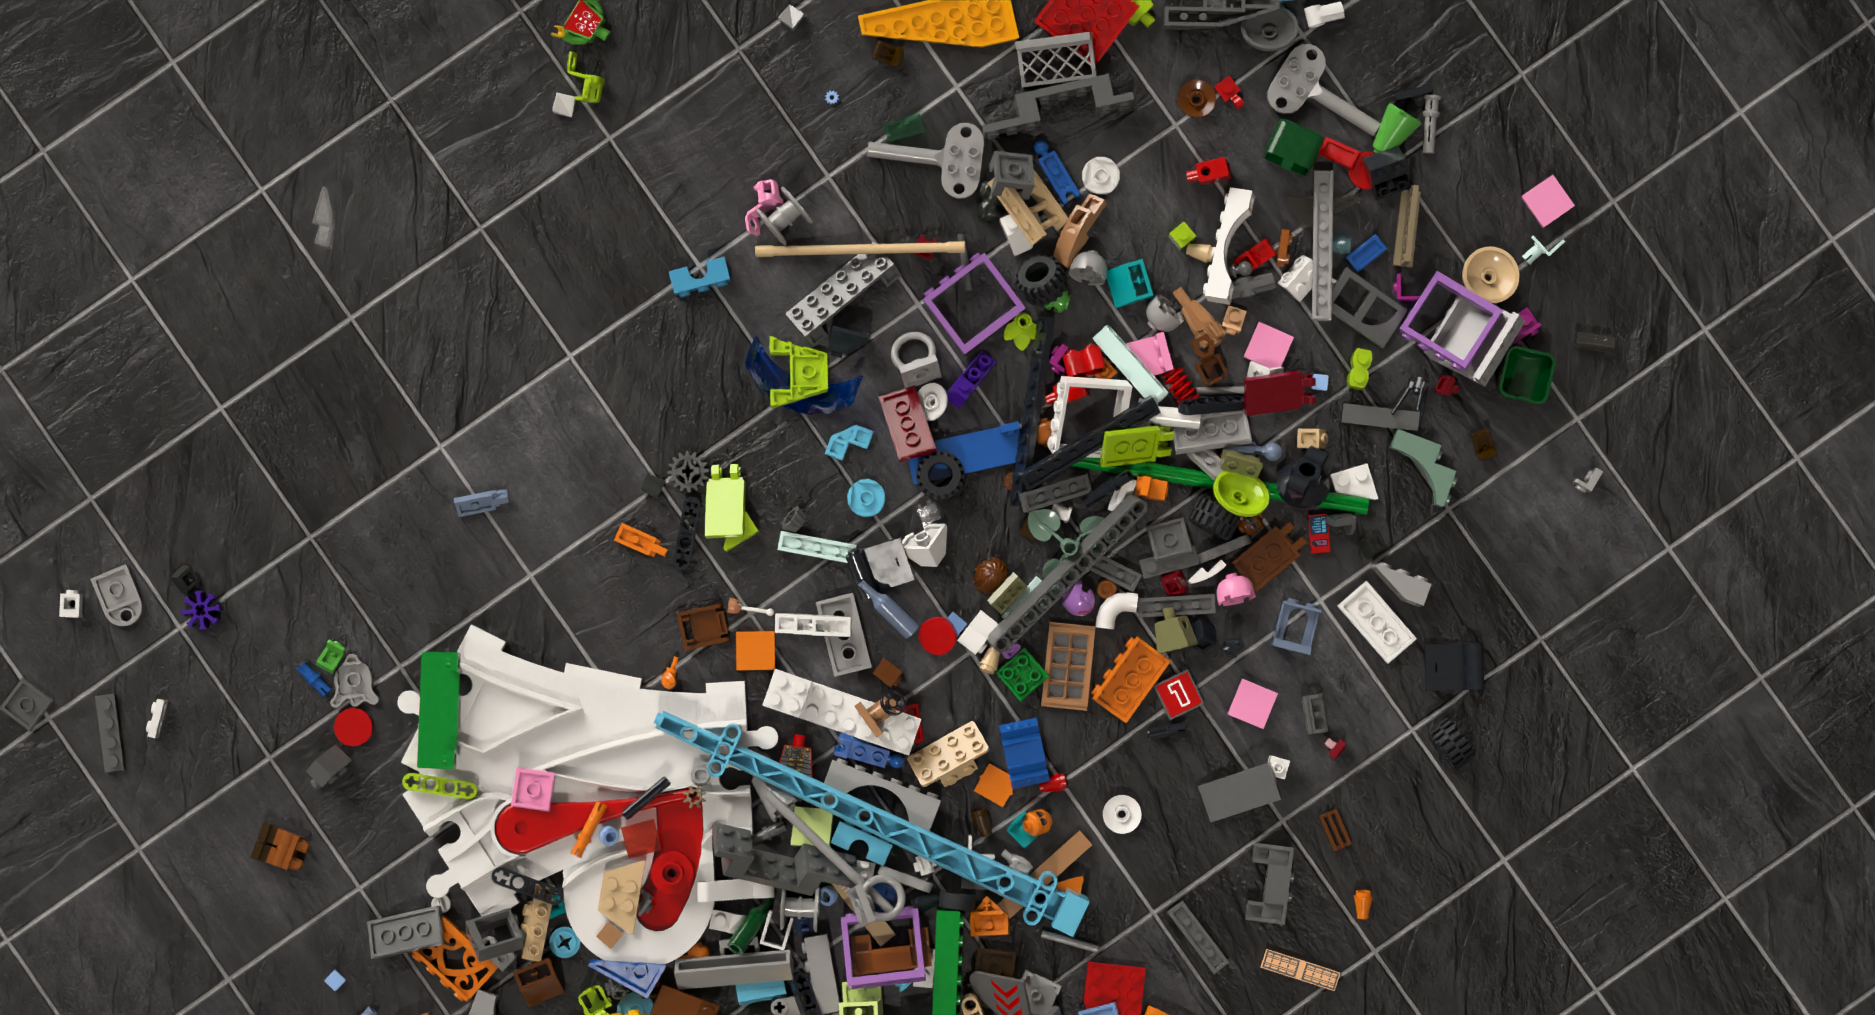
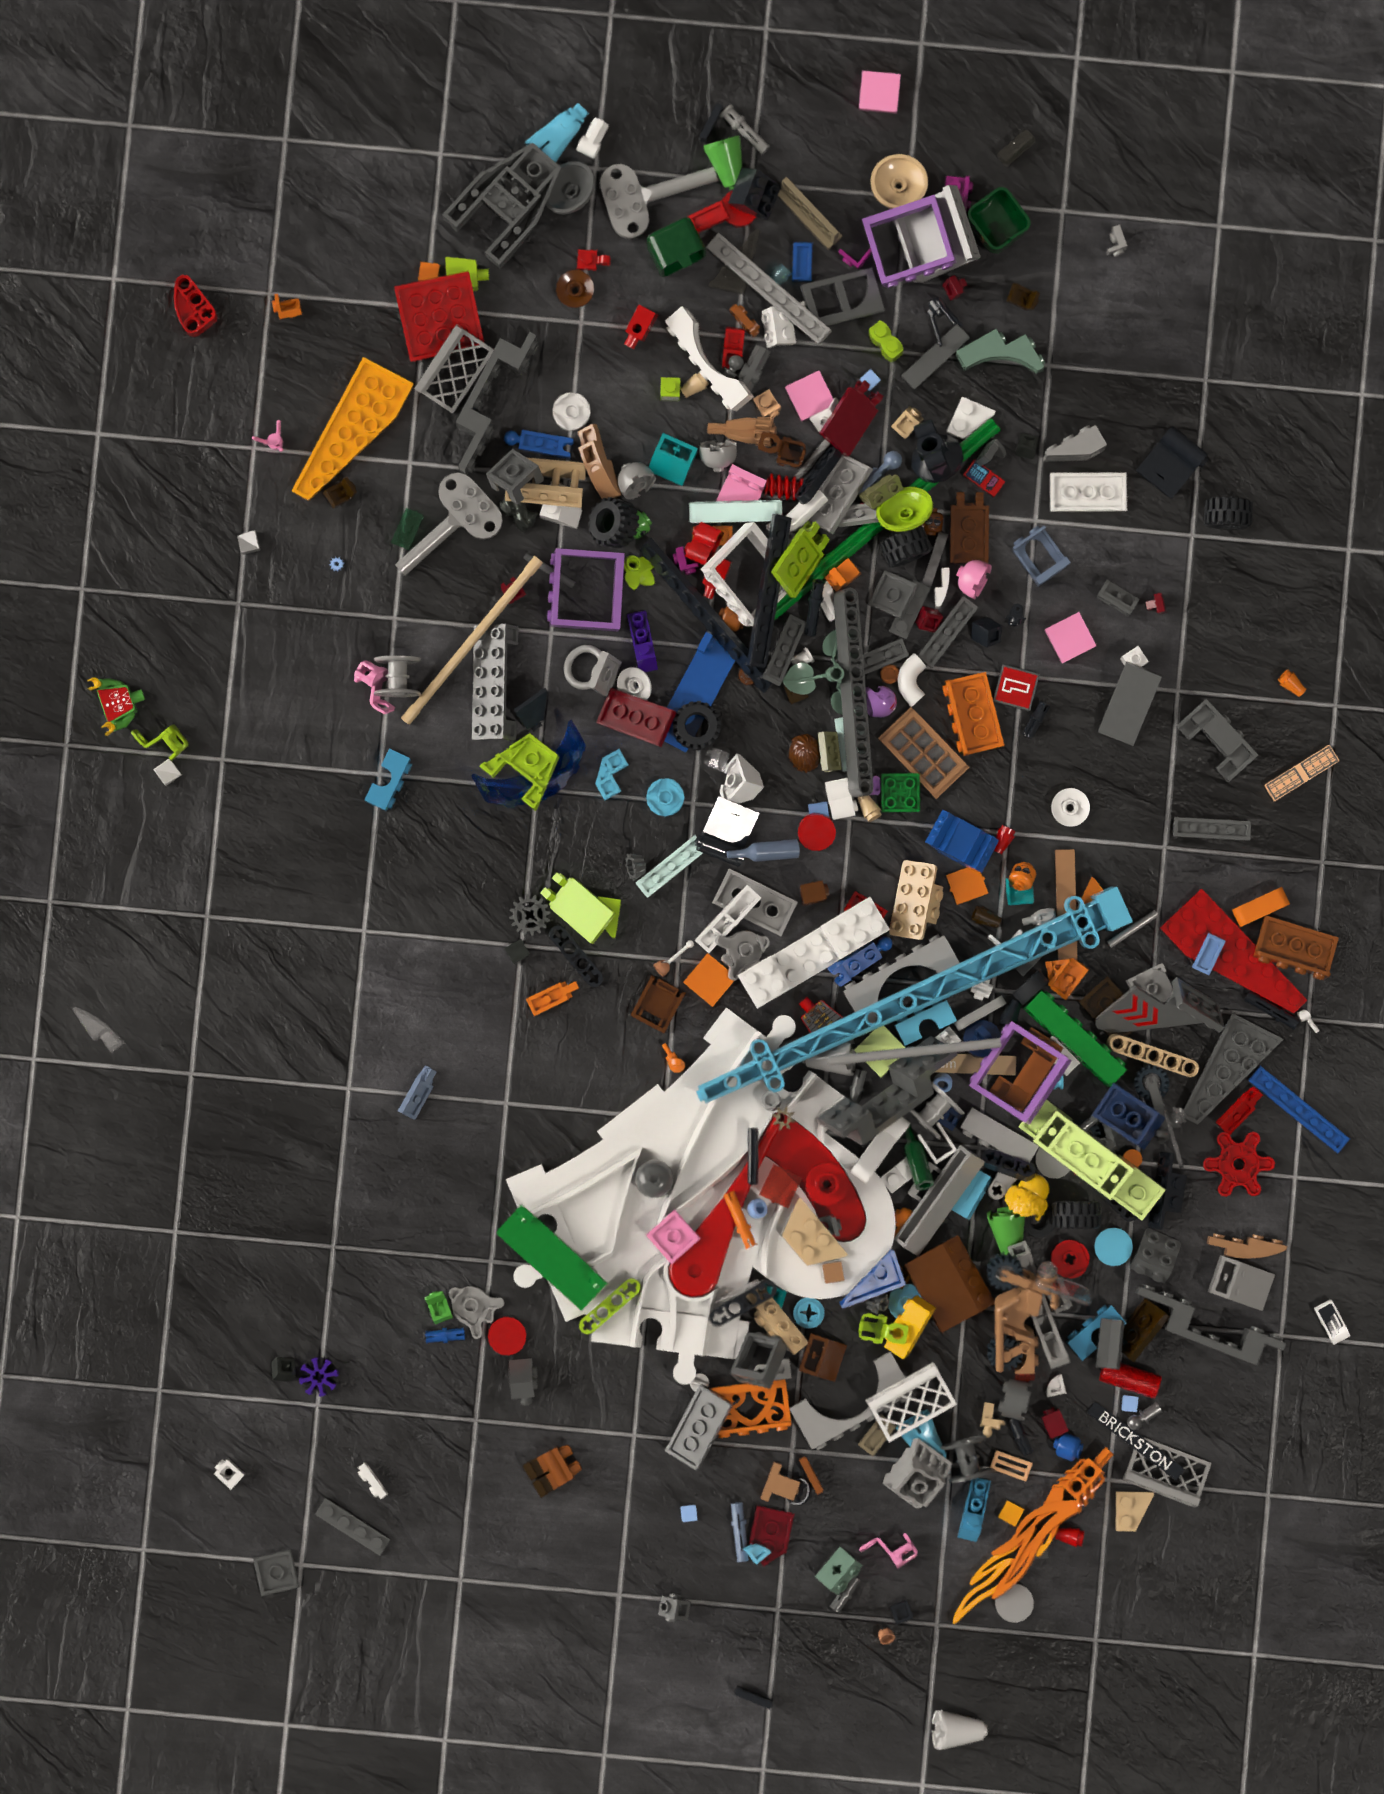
camera: 45 degrees left, 0 degrees up
(117, 594) = (251, 1431): light grey tile -> none
(533, 874) = (722, 1301): none -> white piece
(565, 737) = (654, 1178): none -> dark grey cylinder
(797, 657) = (742, 950): none -> light grey tile
(864, 905) = (974, 1058): light grey tile -> none
(881, 710) = (838, 921): medium nougat piece -> none
(1173, 632) = (966, 650): olive torso -> none
(1341, 845) = (1230, 668): reddish brown tile -> none
(1538, 249) = (909, 129): light aqua bracket -> none

